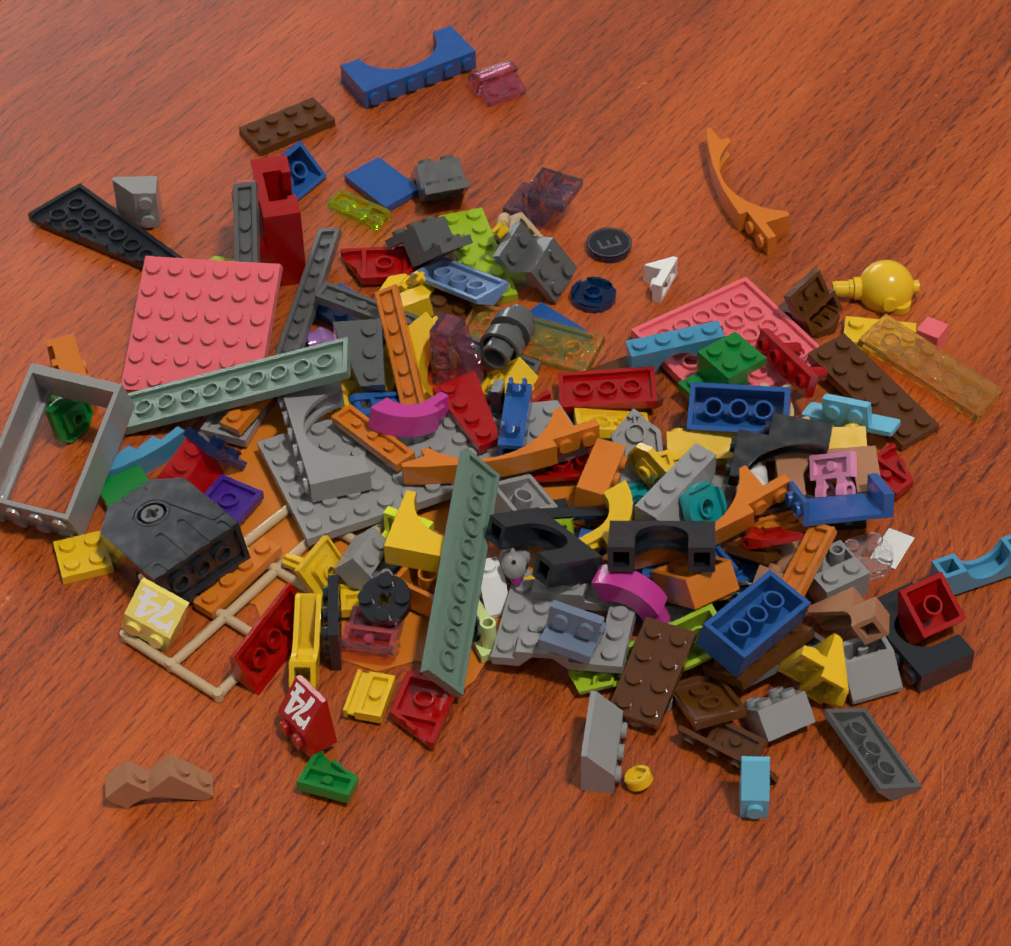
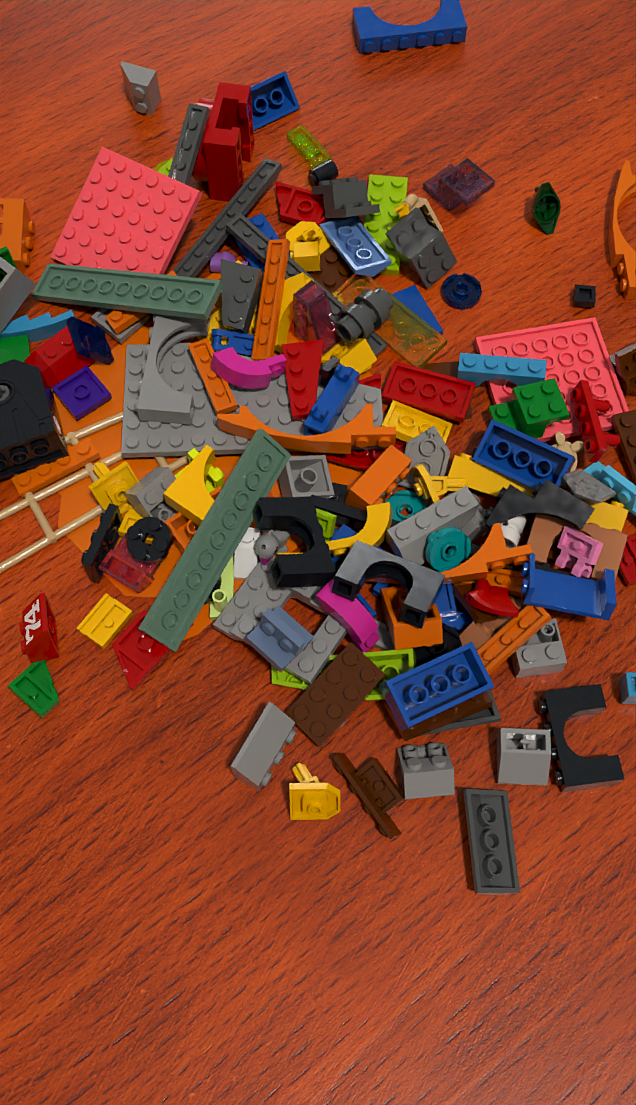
camera: 20 degrees right, 20 degrees up
(96, 223) = (102, 97): black wing -> none
(266, 643) = (49, 540): red slope -> none
(286, 126) = (289, 52): reddish brown plate -> none
(307, 638) = (65, 573): yellow arch -> none
(382, 184) = (339, 130): blue tile -> none
(386, 225) = (325, 171): none -> black brick
(439, 179) = (383, 140): dark grey bracket -> none
(497, 83) = (473, 62): clear pink brick -> none
(609, 245) = (496, 246): tile -> none
(638, 778) = (280, 788): yellow tile -> none
(644, 192) = (546, 207): none -> dark green hat
(660, 276) = (523, 292): white slope -> none
(676, 770) = (311, 798): none -> yellow piece
(707, 701) = (371, 738): reddish brown tile -> none
(724, 262) = (584, 296): none -> black plate
(754, 787) = (370, 846): medium azure slope -> none
(814, 414) = (587, 487): none -> light grey tile
(820, 671) = (479, 751): yellow piece -> none
(850, 612) = (531, 696): nougat arch -> none
(873, 545) = (587, 627): clear plate -> none
(900, 544) = (602, 634): white sticker -> none
(928, 609) = (602, 721): red slope -> none

